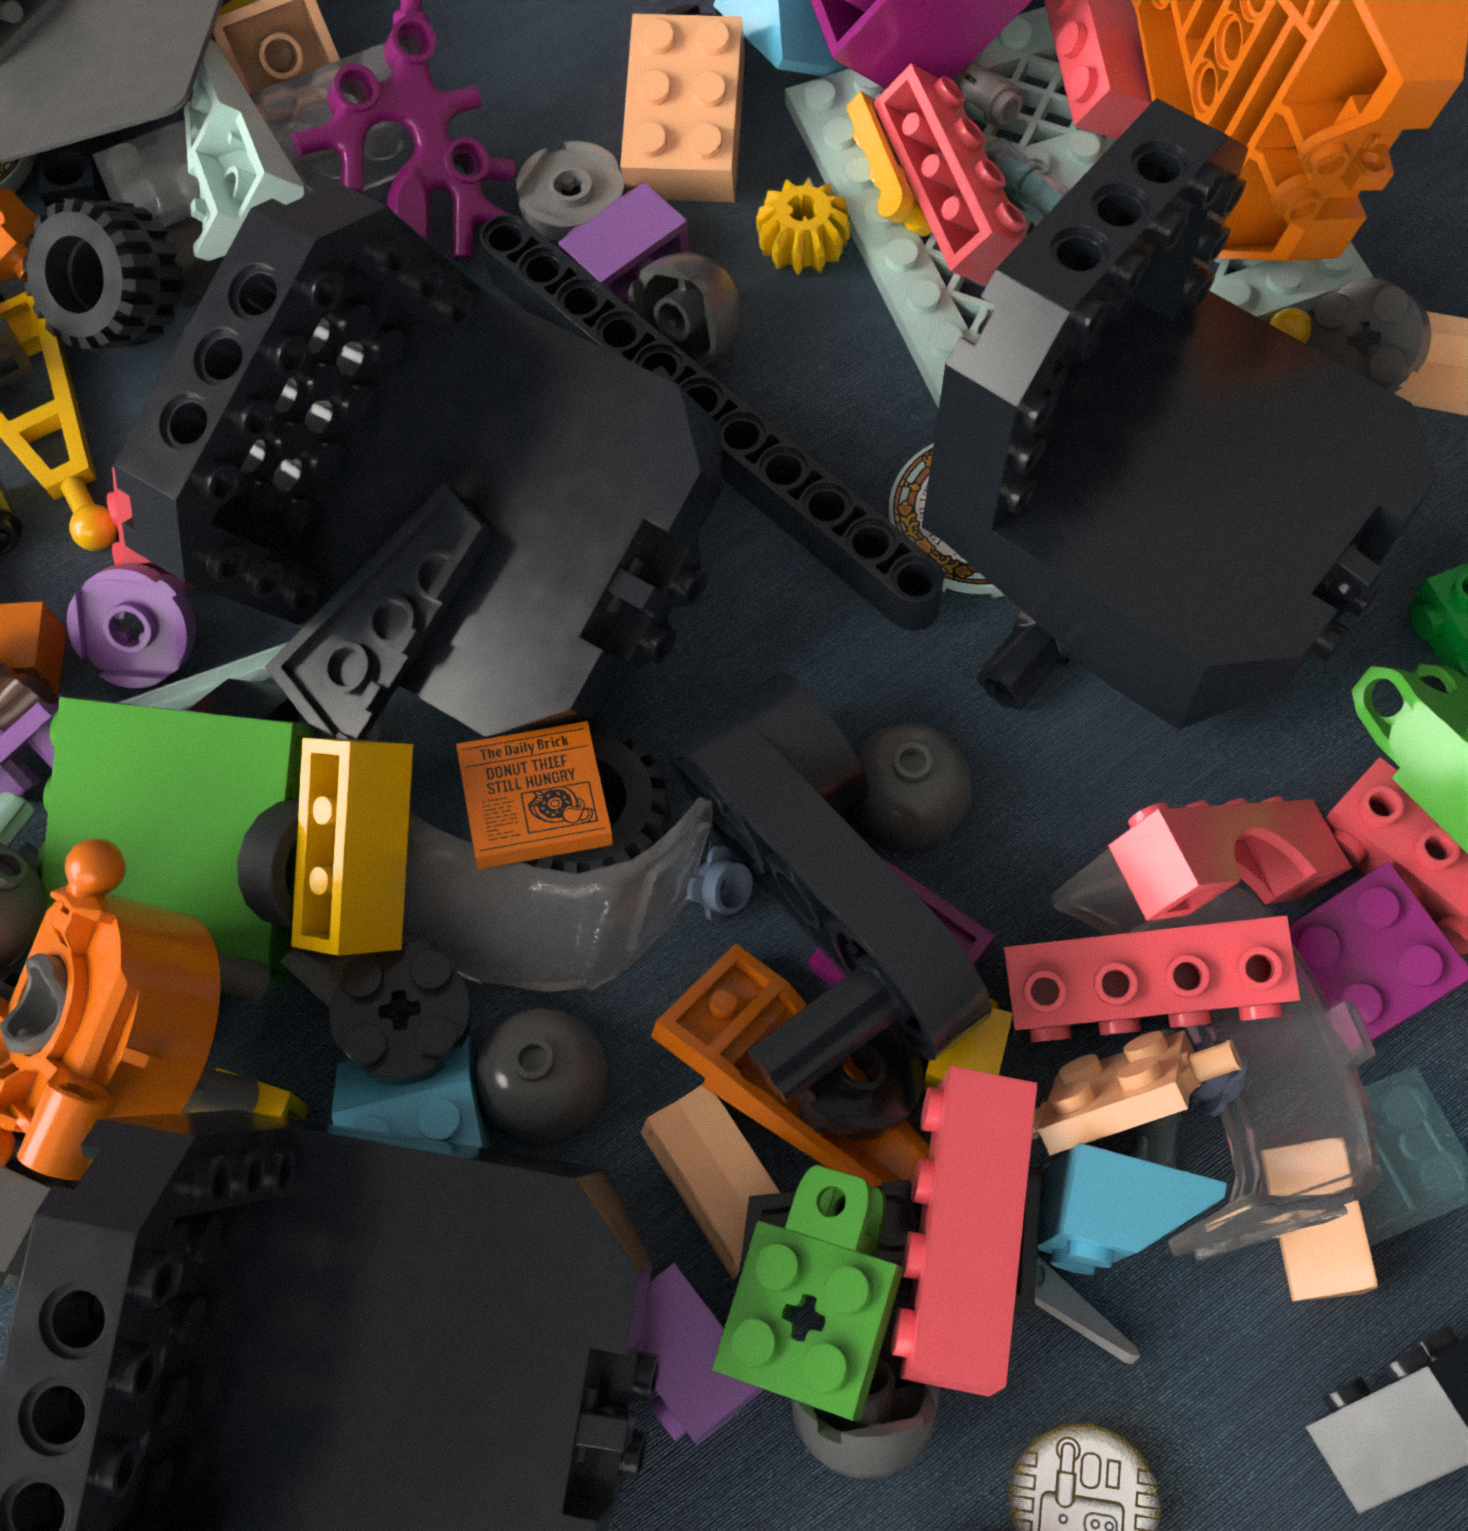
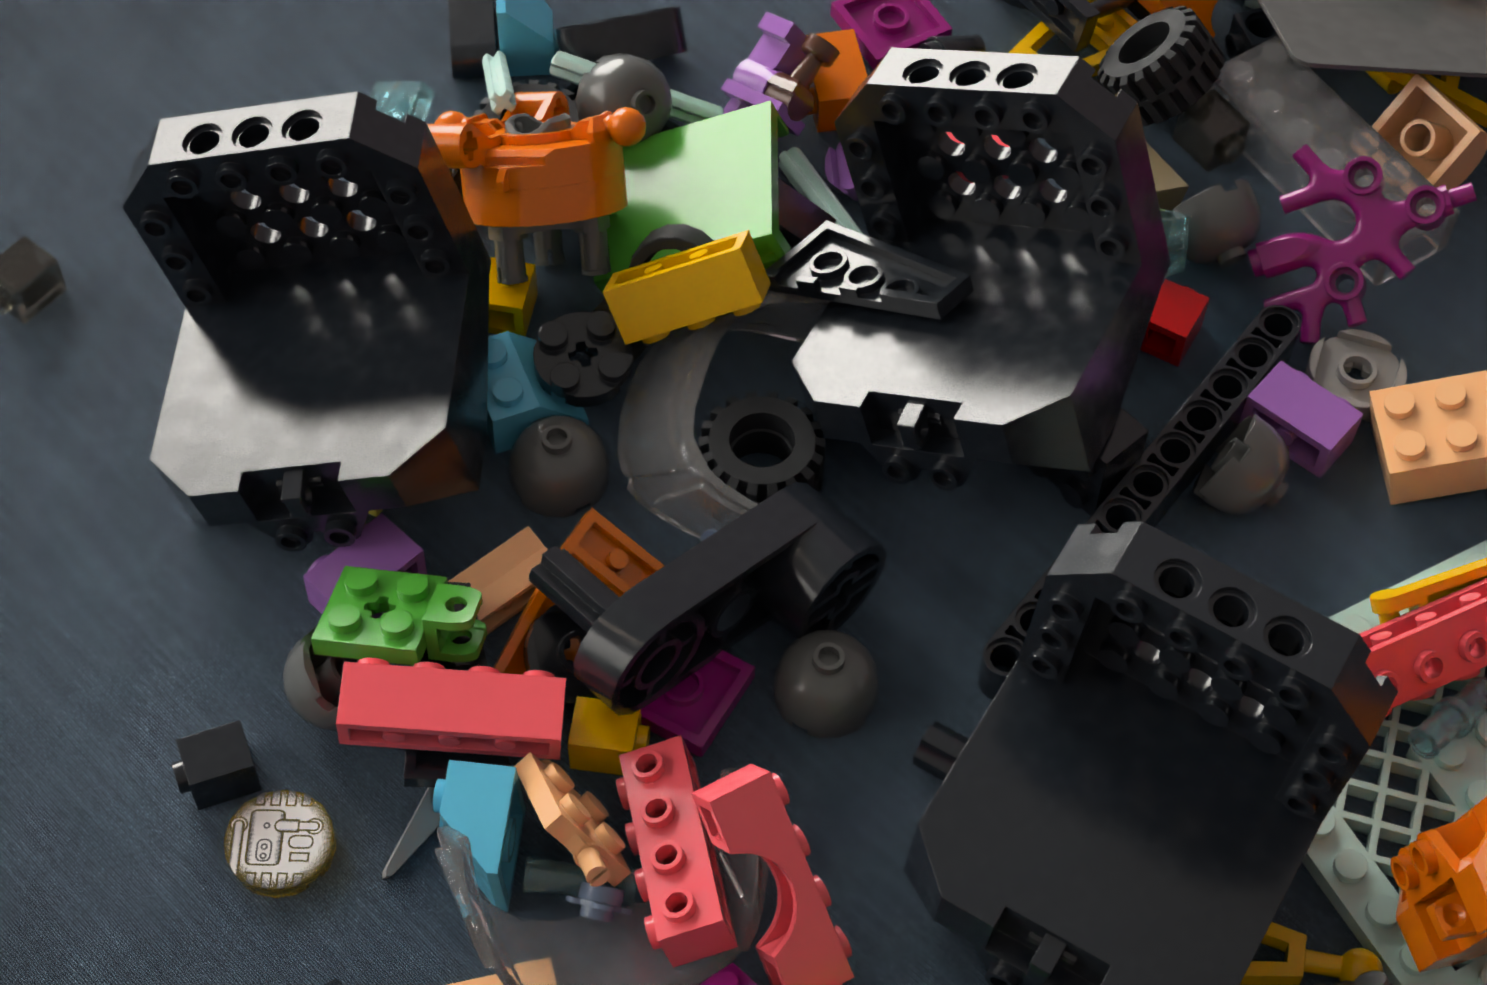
camera: 75 degrees right, 10 degrees down
(230, 156) = (1272, 124): light aqua wedge -> none
(533, 795) = (751, 399): orange tile -> none
(803, 226) = (1364, 550): yellow gear -> none

